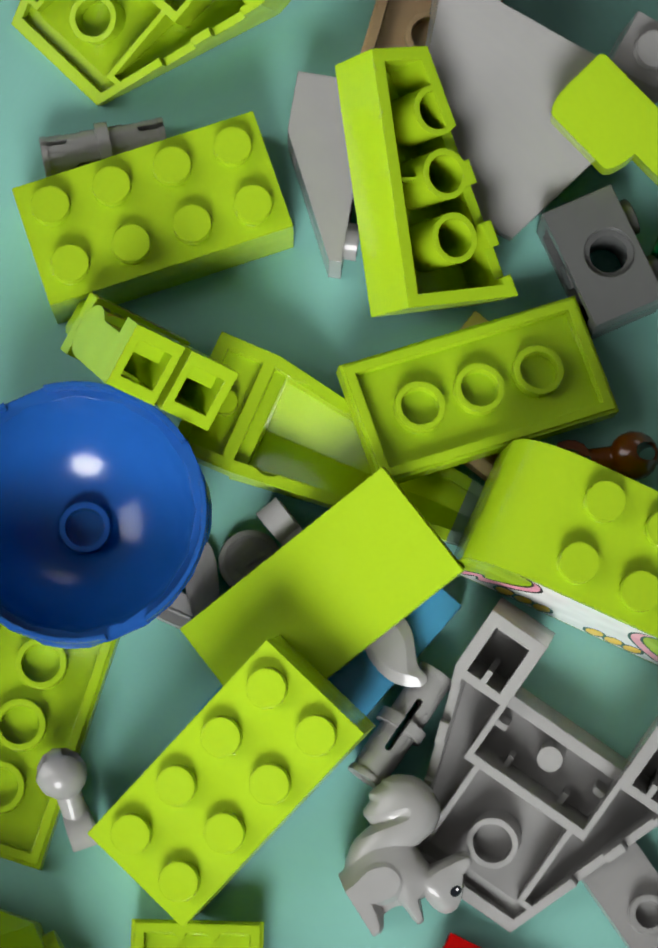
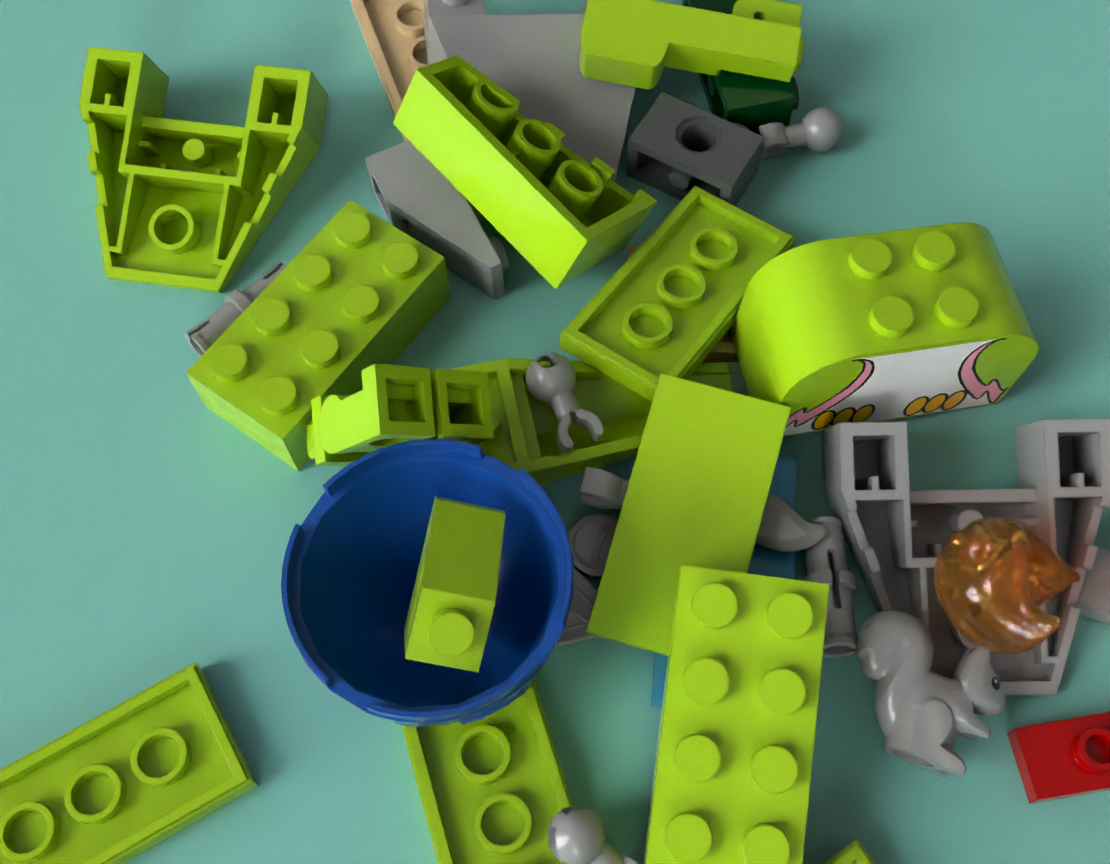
camera: 30 degrees left, 15 degrees down
(92, 532) = (455, 585): none -> lime slope
(299, 415) = (555, 387): none -> light grey arm
(509, 817) = (995, 581): none -> clear orange piece

